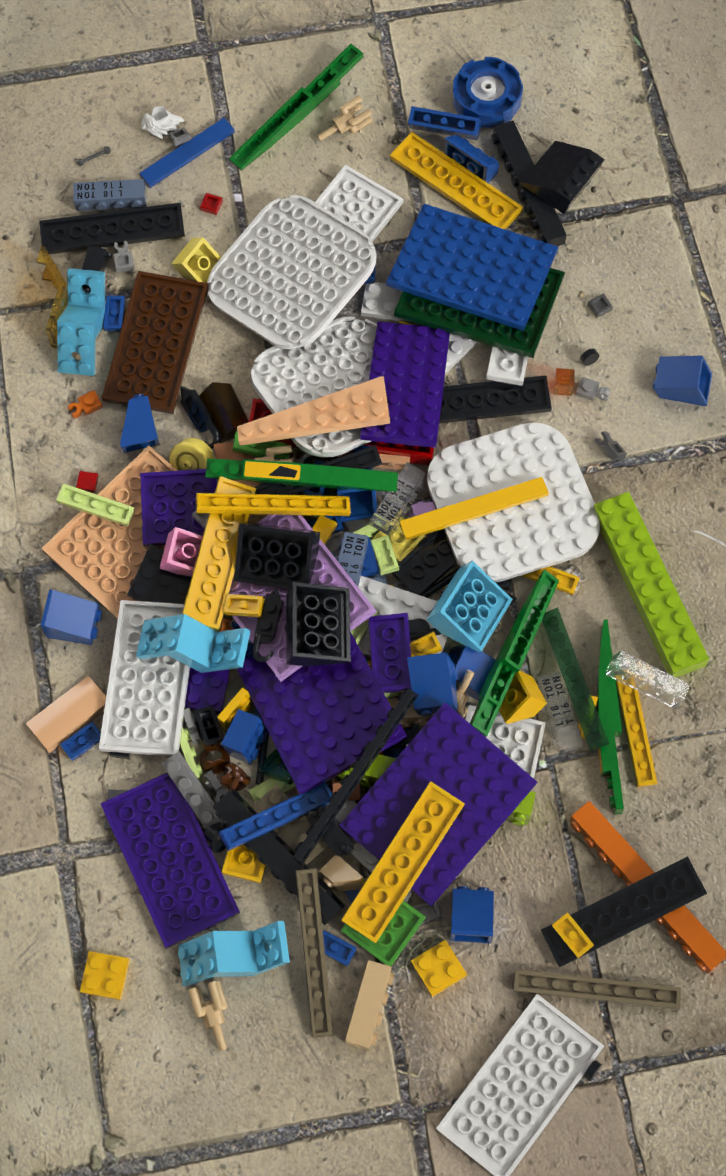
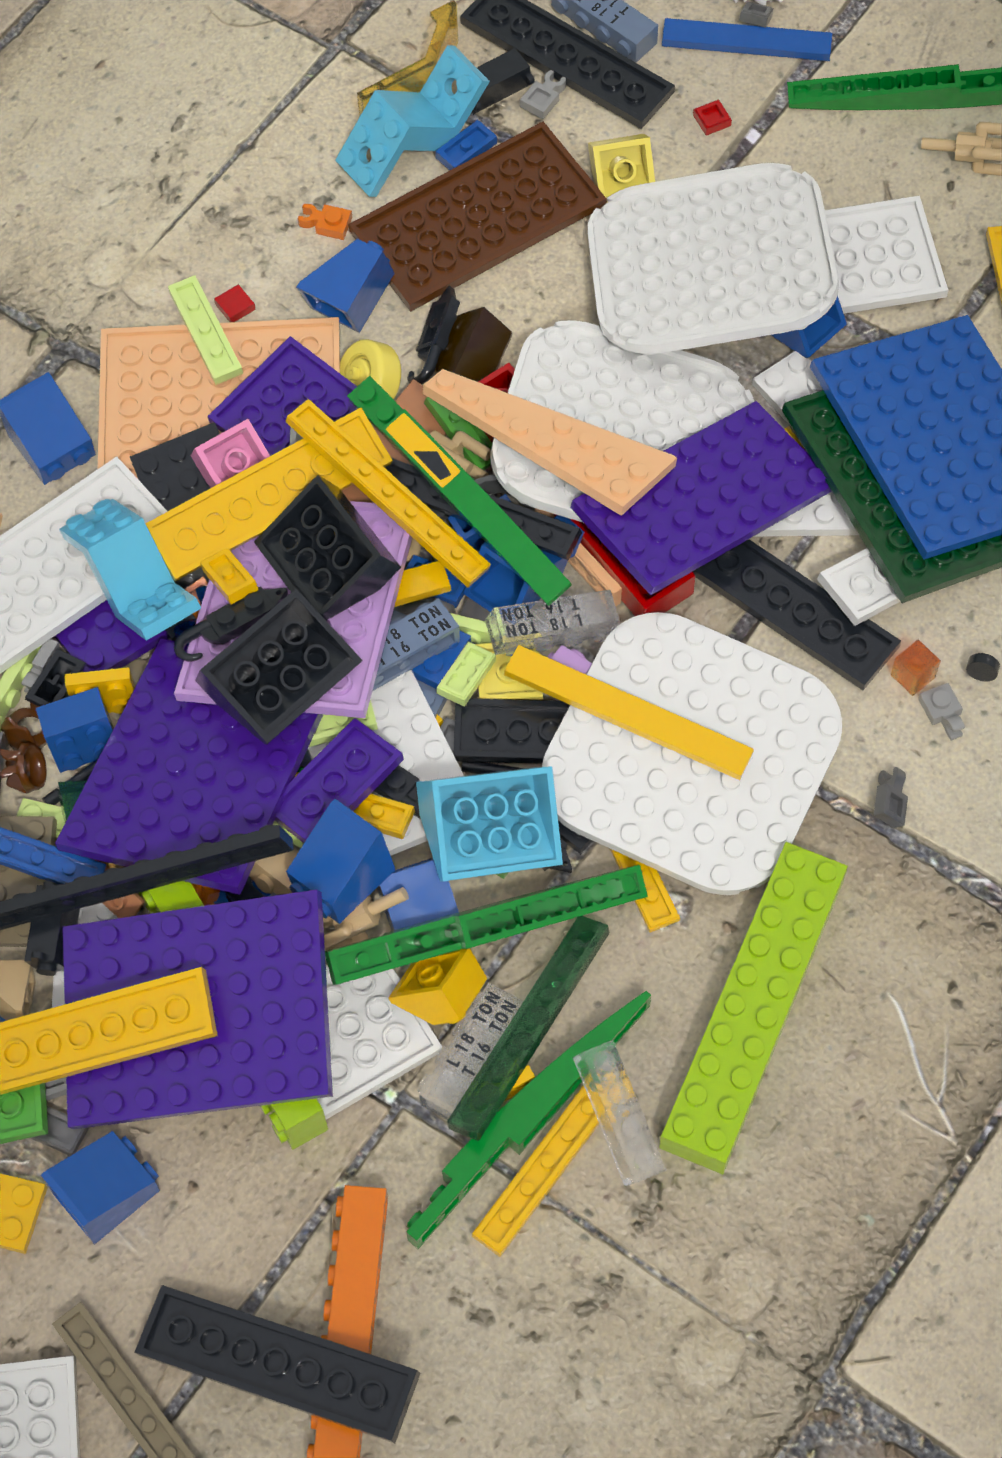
camera: 45 degrees right, 5 degrees down
(573, 935) = (184, 1327): yellow plate -> none

